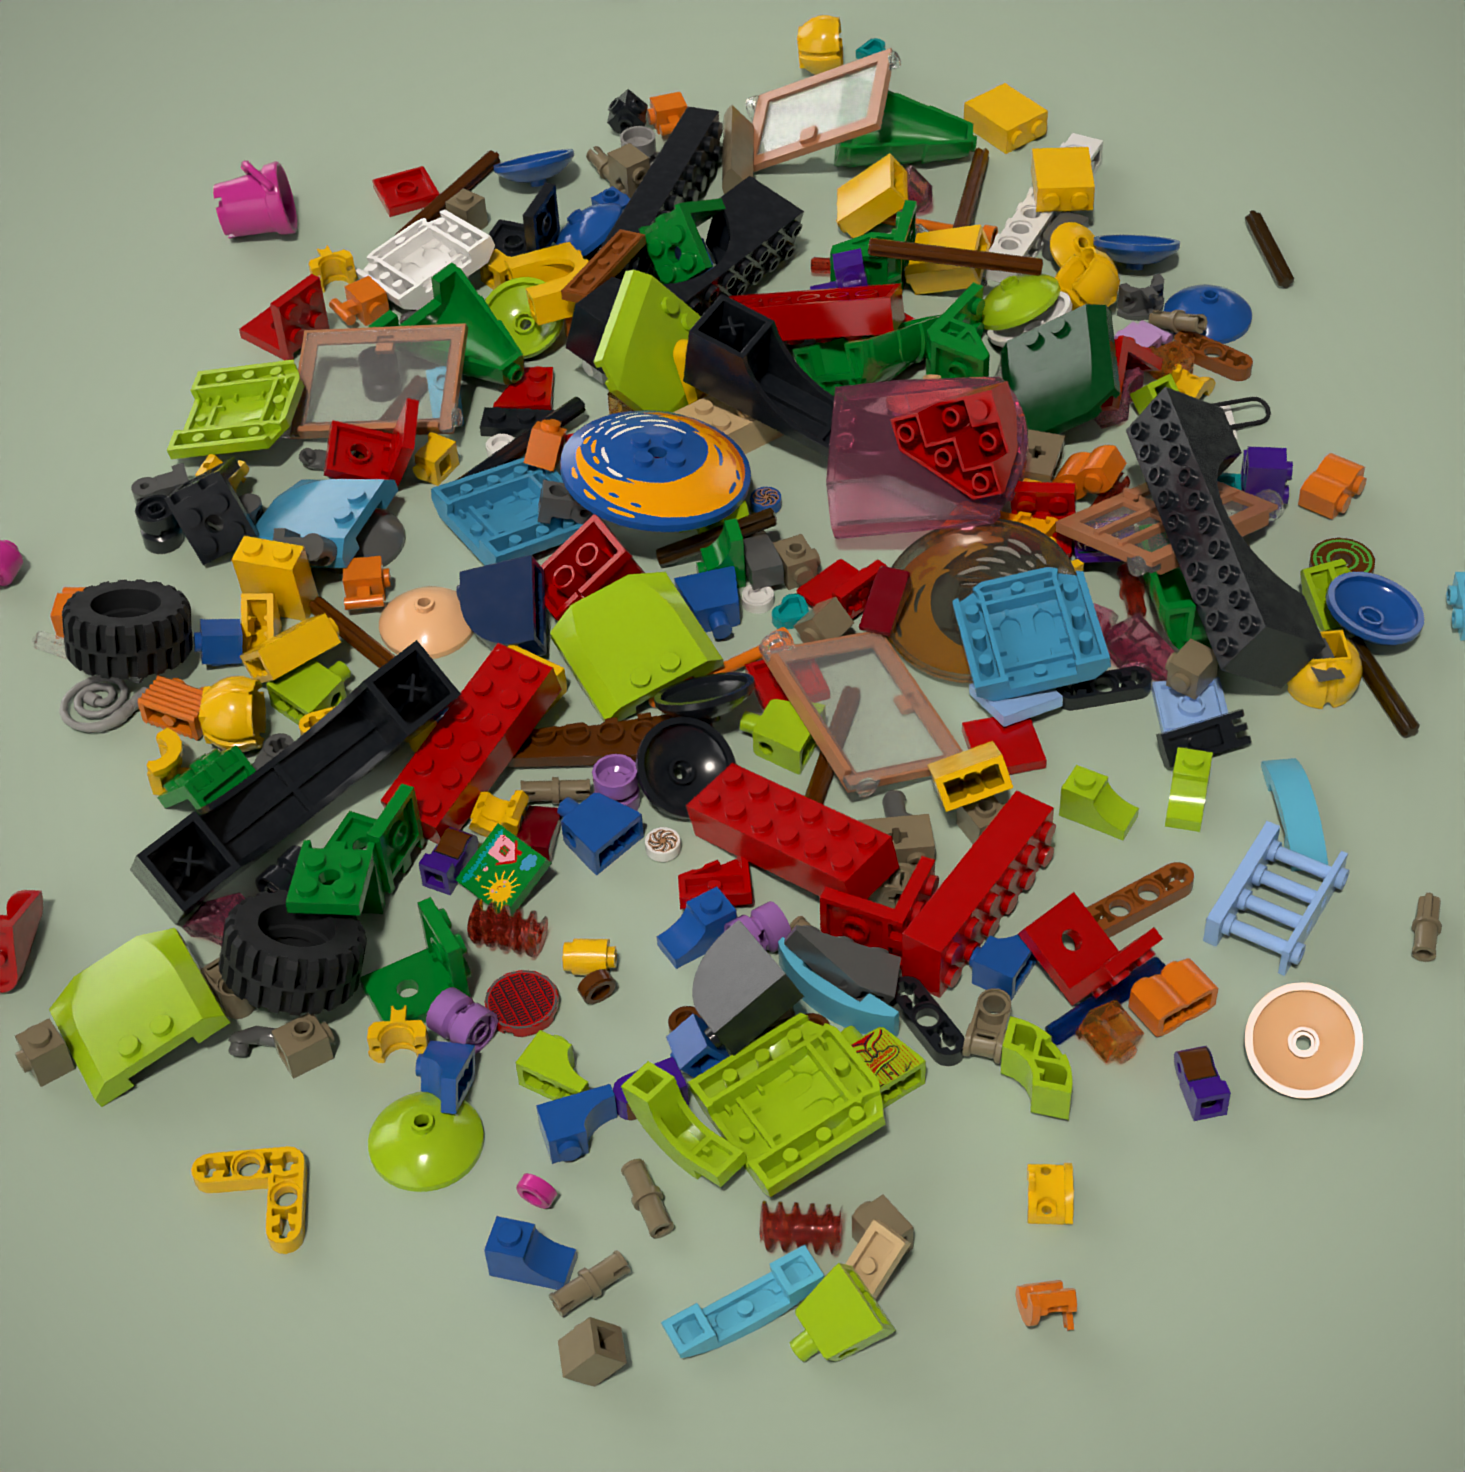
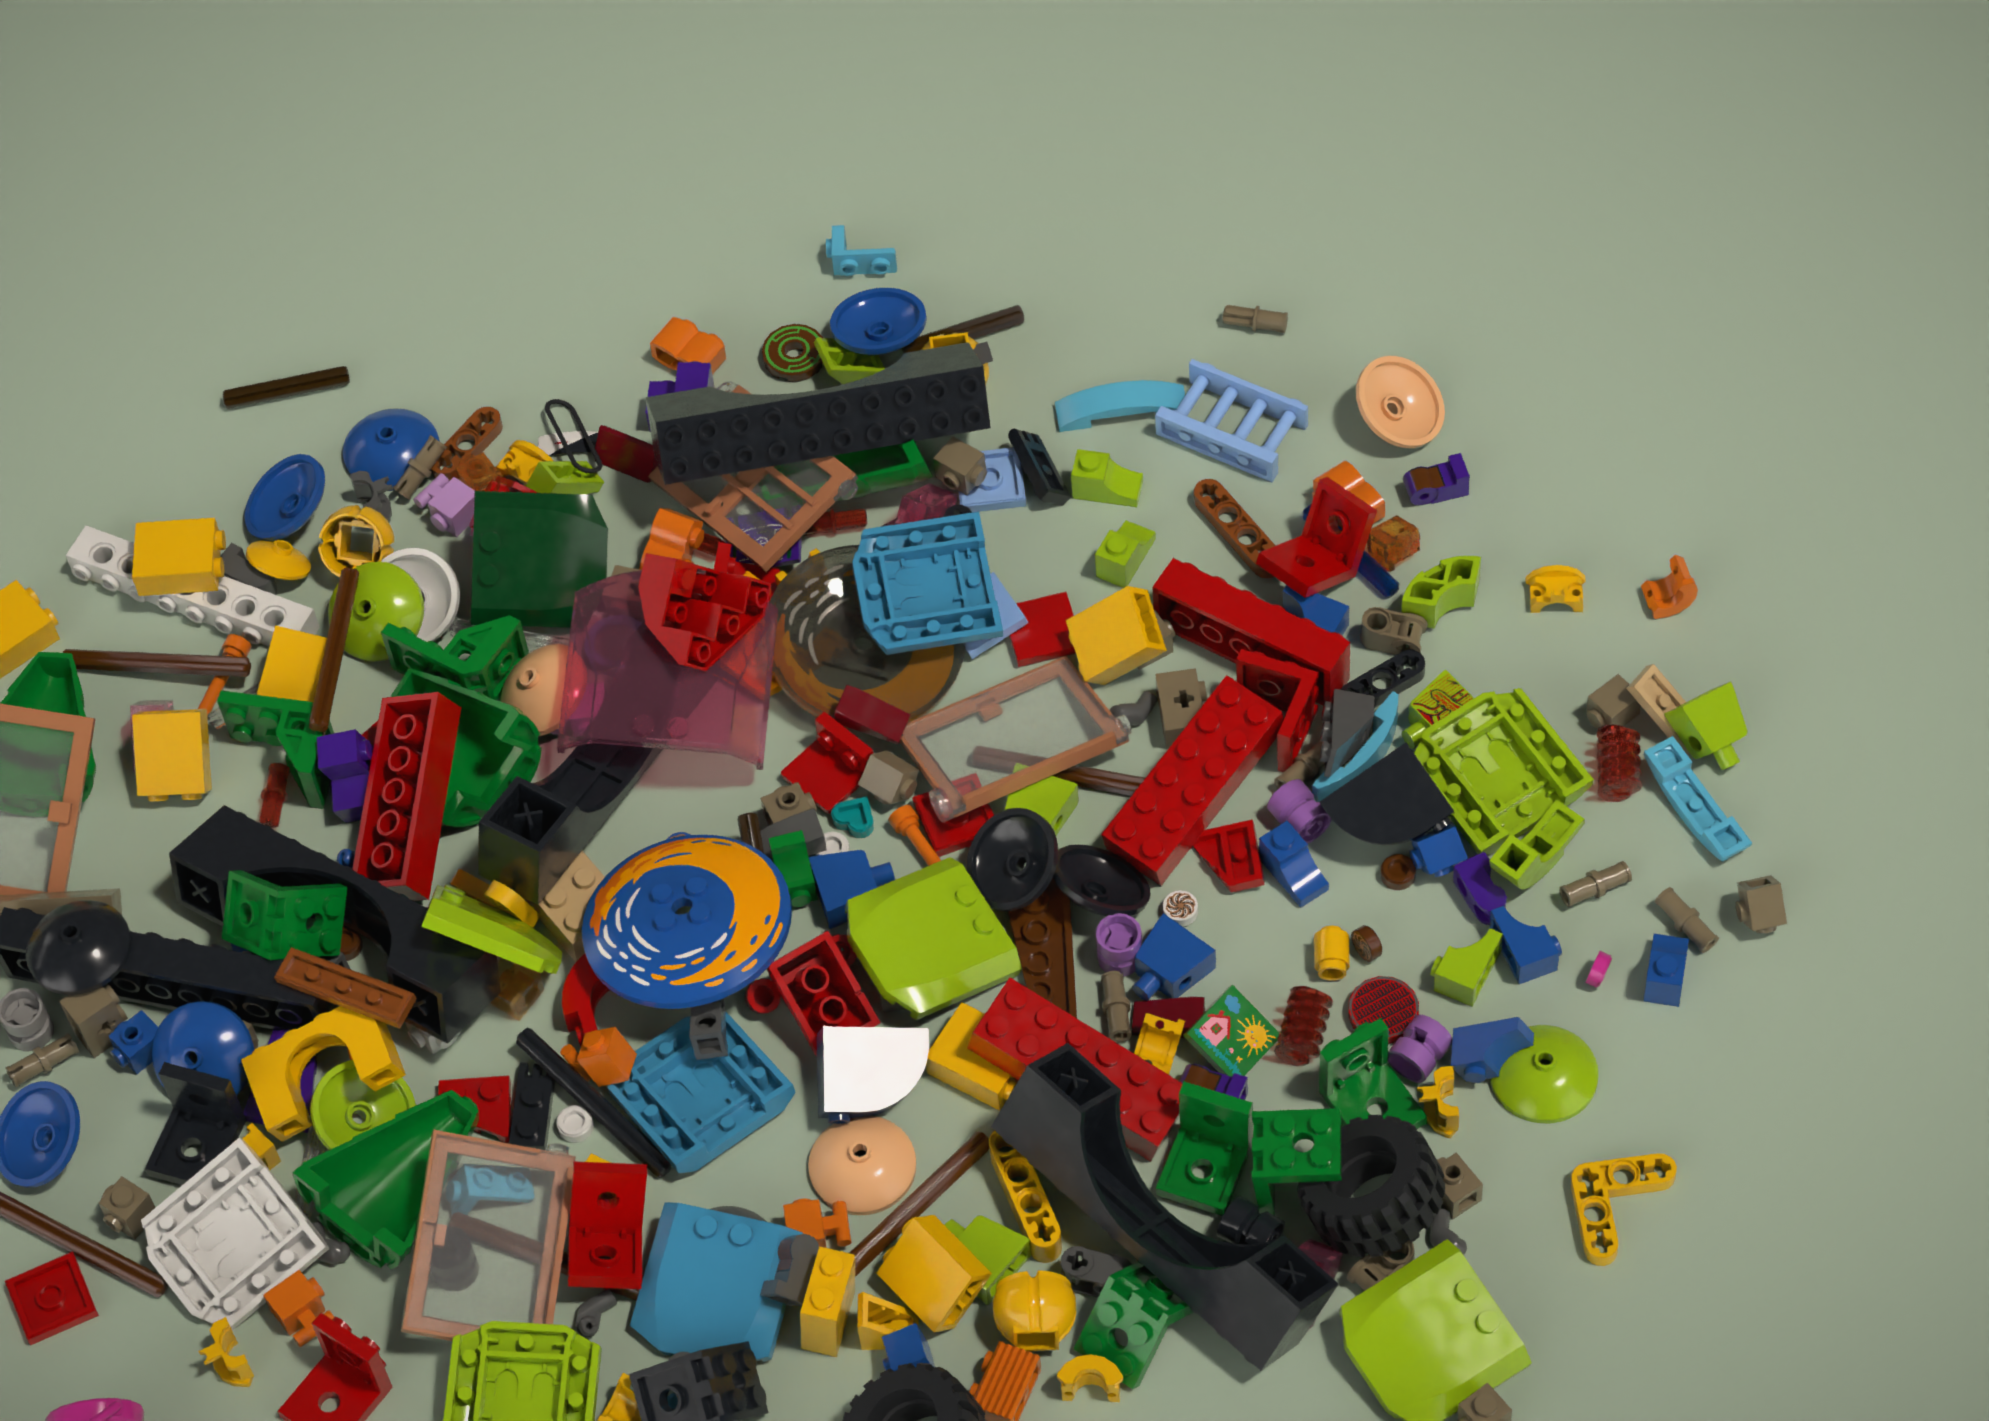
camera: 90 degrees left, 10 degrees up
(672, 143) = (87, 958): none -> black dish

